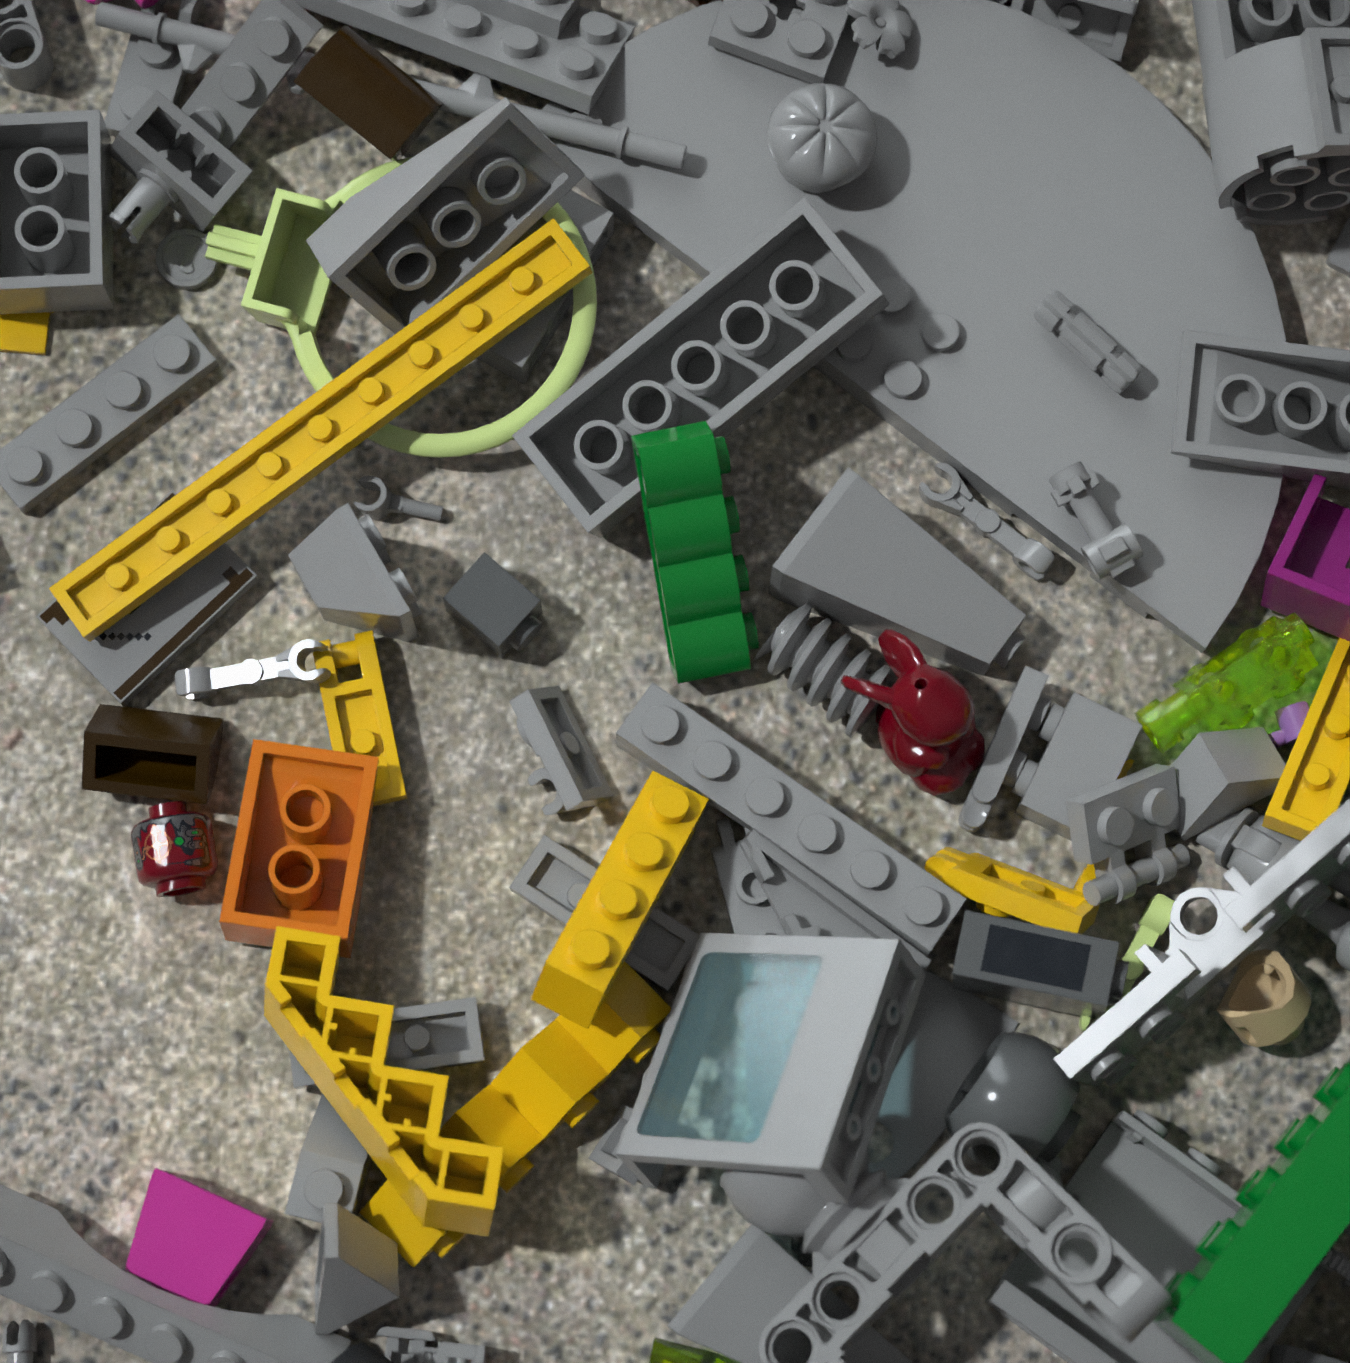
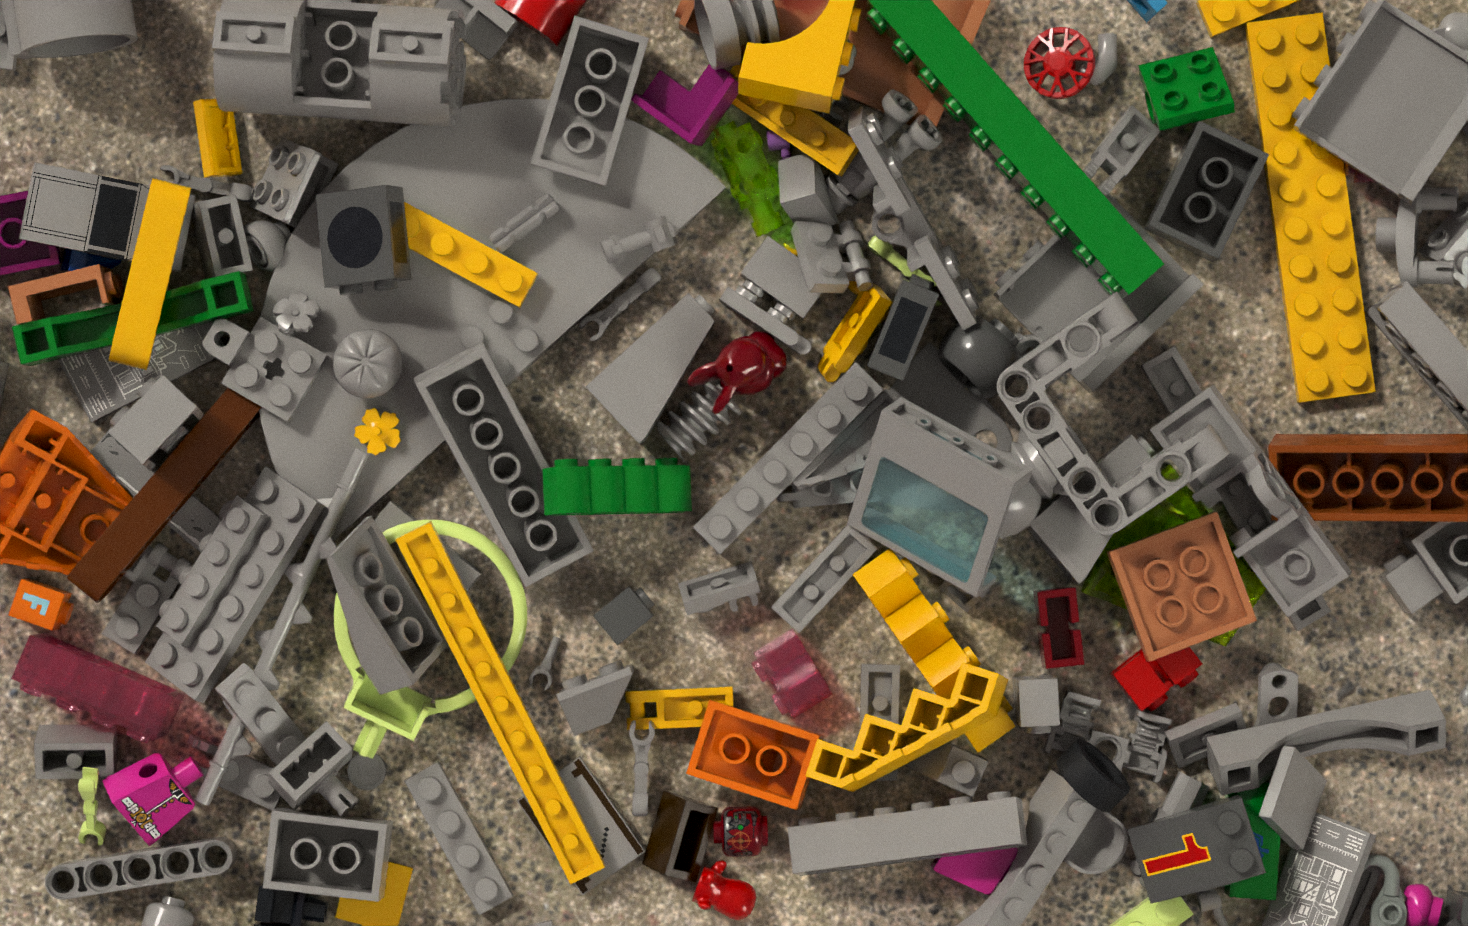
camera: 80 degrees left, 10 degrees up
(67, 843) = (727, 895): none -> red animal
(205, 1117) = (907, 835): none -> light grey brick
(353, 1269) = (1012, 762): light grey slope -> none
(368, 93) = (292, 641): dark brown brick -> none
(442, 887) = (792, 674): none -> clear pink brick
(456, 1293) = (1036, 703): none -> light grey brick
(561, 1319) = (1058, 644): none -> dark red piece
(619, 900) = (822, 568): yellow brick -> none
(719, 178) = (378, 431): none -> yellow plant
(1016, 97) = (363, 239): none -> dark grey brick
(1019, 255) = (467, 257): none -> yellow plate
(1265, 1000) = (944, 194): tan piece -> none

